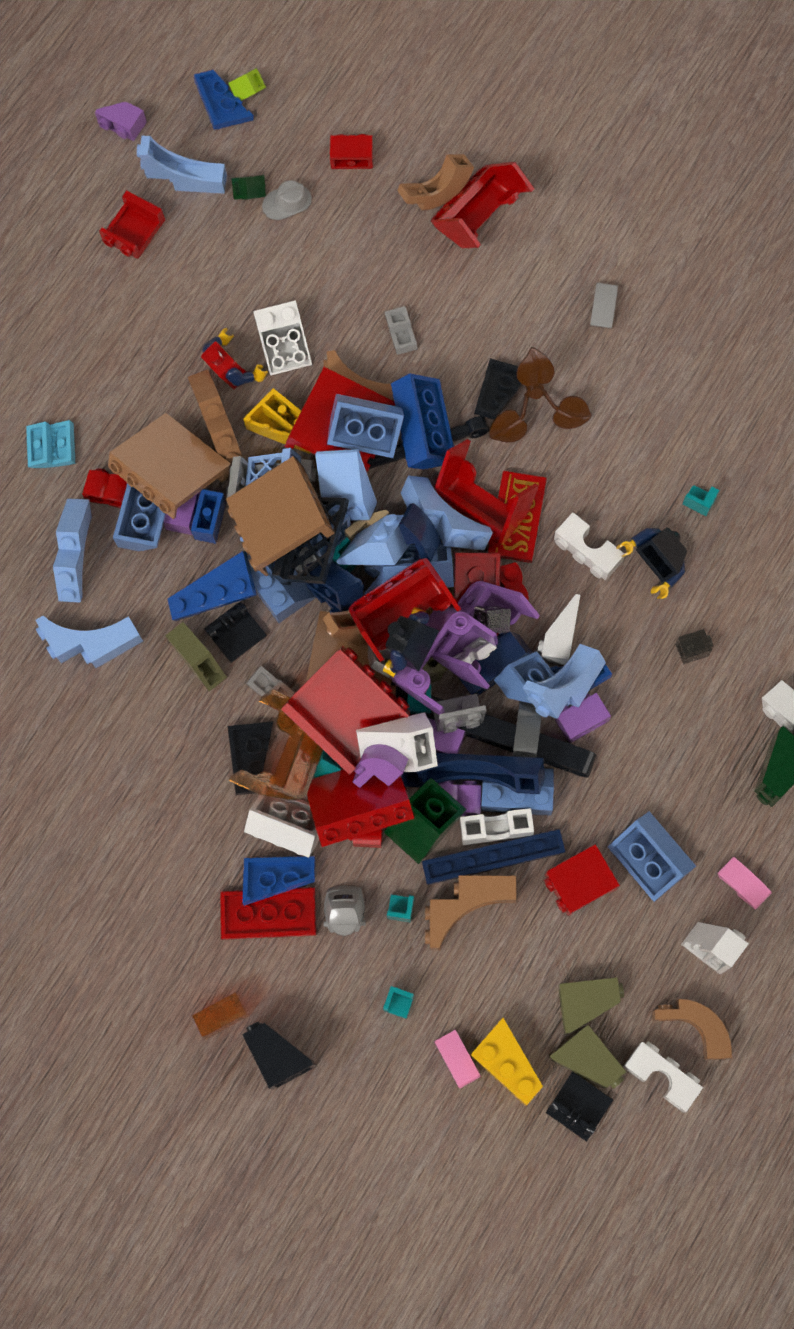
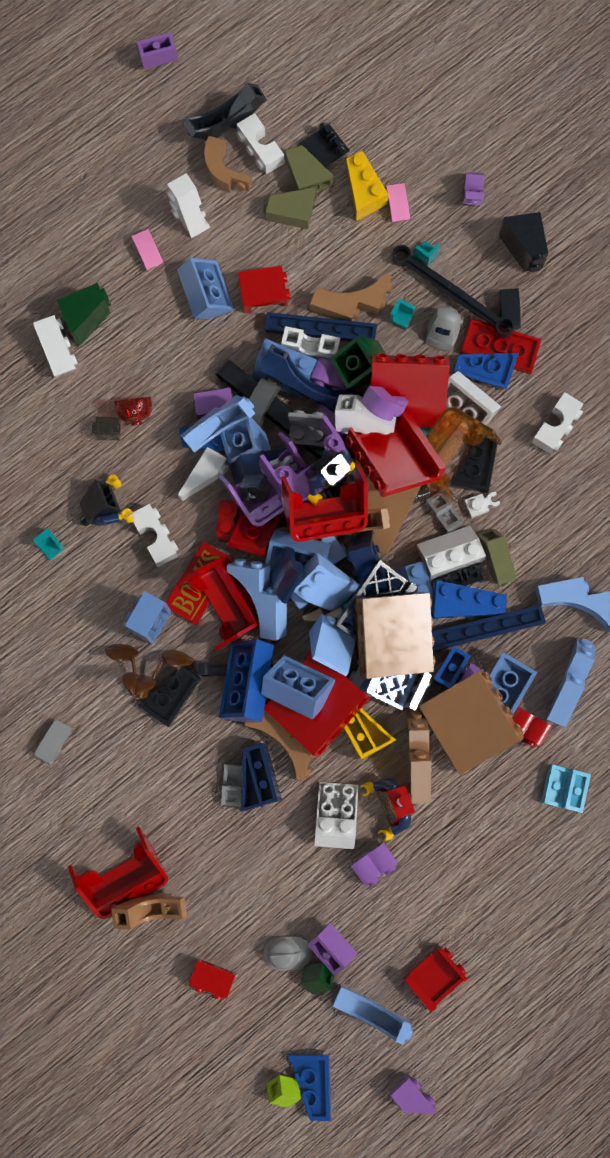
camera: 165 degrees left, 5 degrees up
(173, 816) = (549, 436): none -> white arch
(181, 576) = (488, 628): none -> dark blue plate
(220, 1015) = (558, 284): clear orange brick -> none
(227, 304) = (374, 864): none -> medium lavender brick
(234, 711) = (479, 505): none -> white plate
(242, 213) = (332, 949): none -> medium lavender brick
(249, 641) = (451, 552): none -> white slope
(271, 964) = (510, 307): none -> black slope
(348, 960) = (453, 291): none -> black piece
(366, 1109) = (473, 188): none -> medium lavender brick
(373, 339) = (259, 778): none -> dark blue wedge
(556, 446) = (147, 617): none -> medium blue brick
(673, 677) = (134, 409): none -> clear red cylinder
(722, 1093) = (226, 115): none -> black arch

